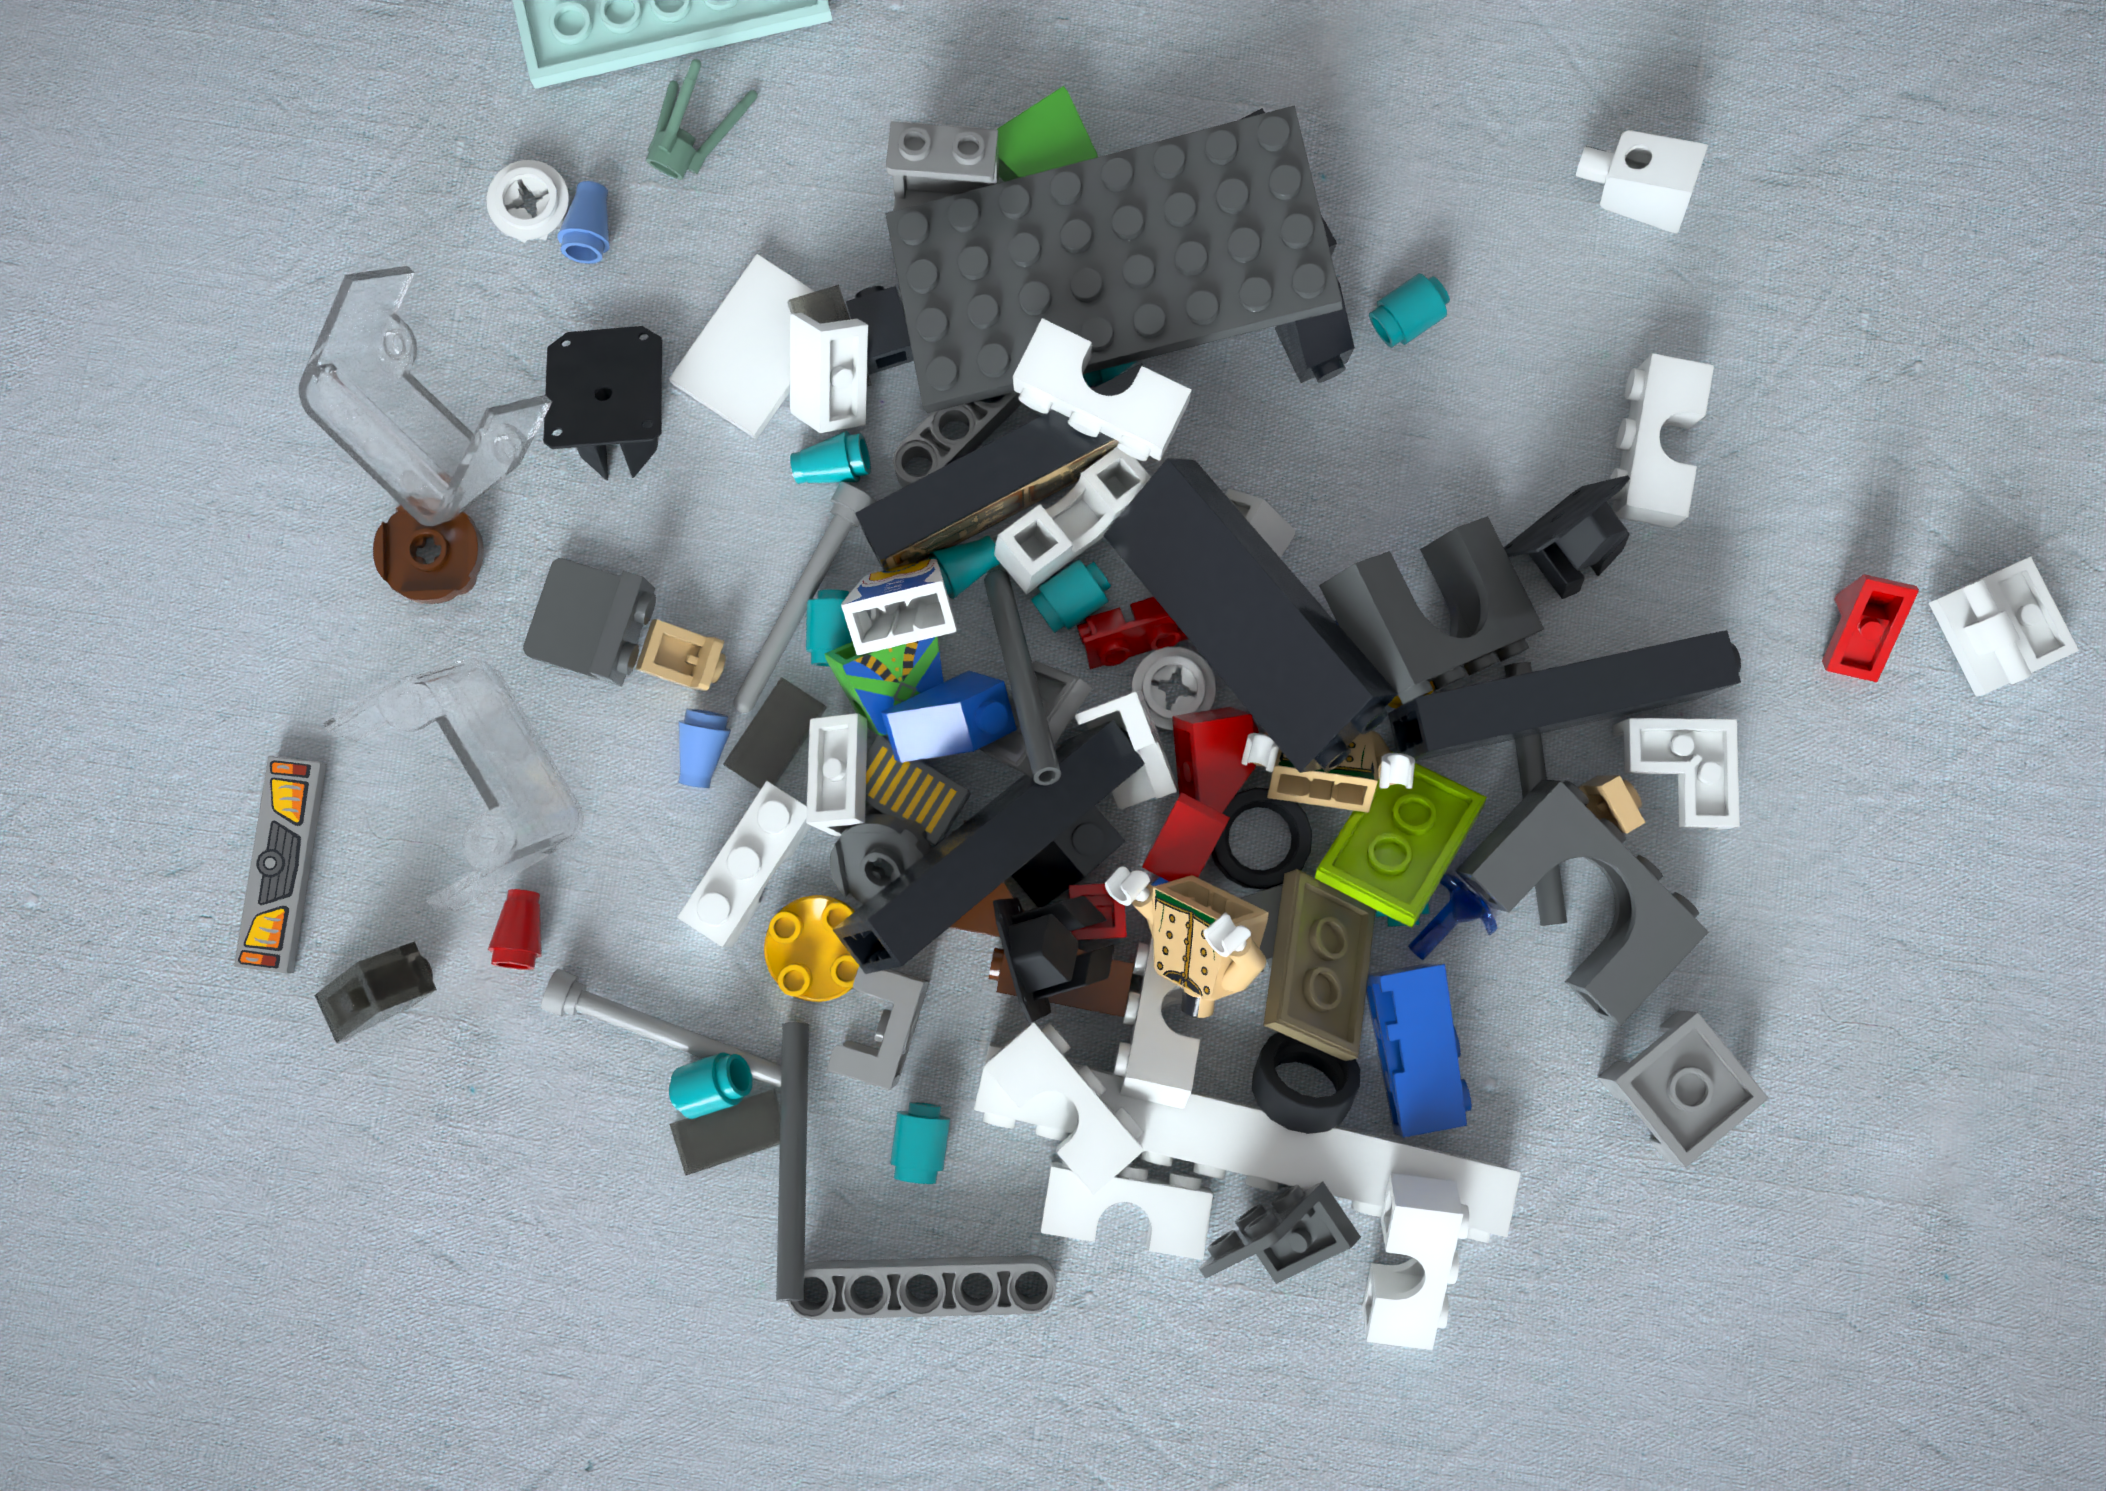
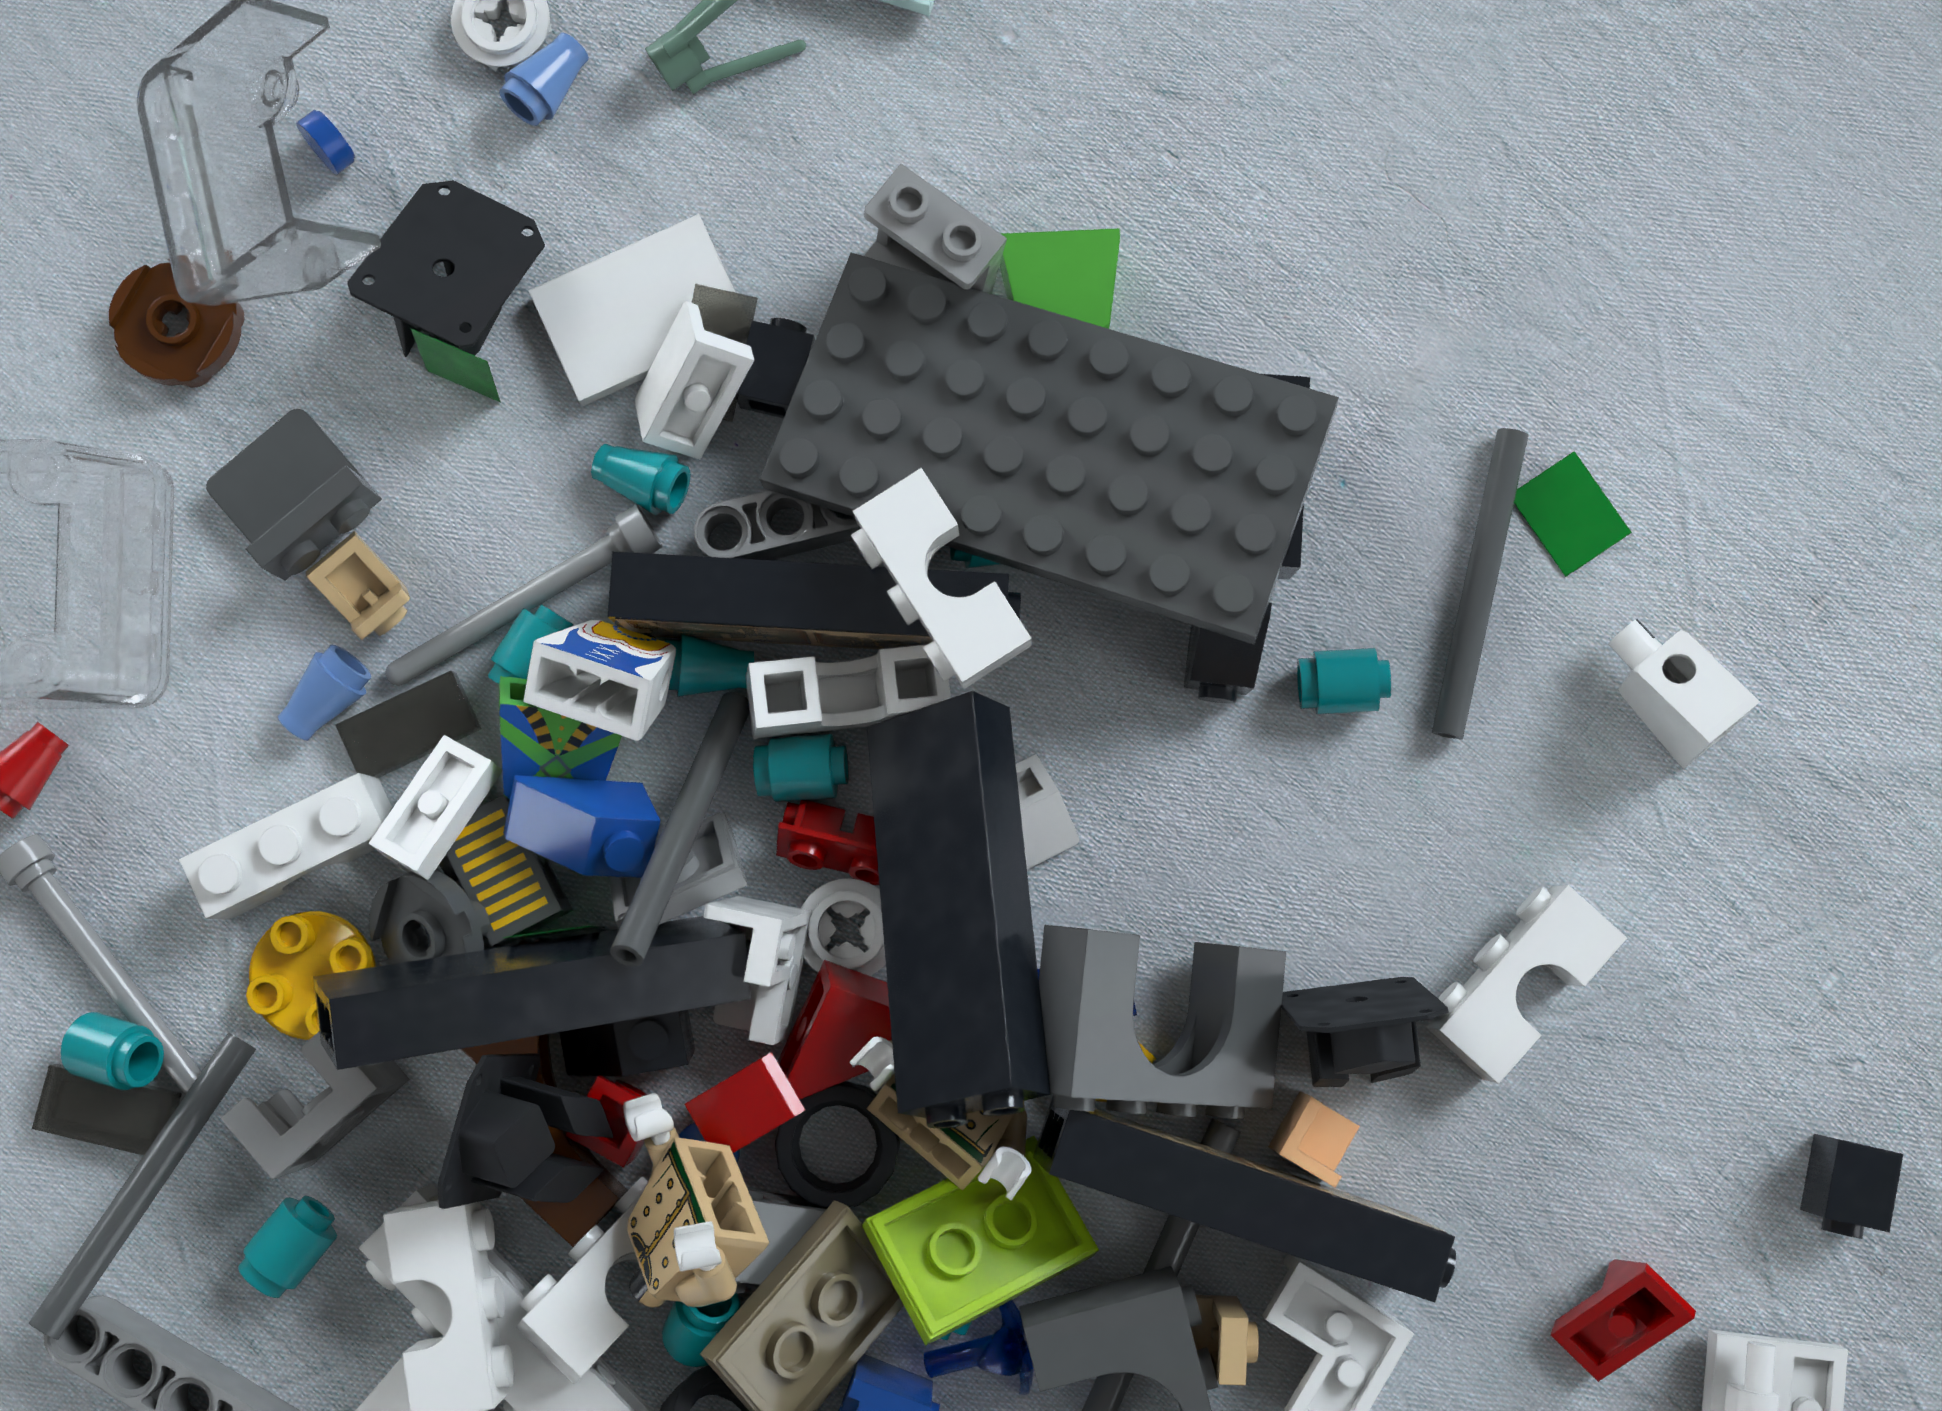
camera: 30 degrees right, 0 degrees up
(457, 359) = (326, 141): none -> blue tile
(653, 458) = (456, 365): none -> green sticker
(972, 810) = (555, 932): none -> sticker
(1242, 1019) = (692, 1329): none -> teal brick
(1461, 188) = (1480, 583): none -> dark grey piece
(1492, 104) = (1570, 514): none -> green sticker
(1582, 633) = (1314, 1137): none -> light nougat panel
(1964, 444) = (1851, 1186): none -> black brick

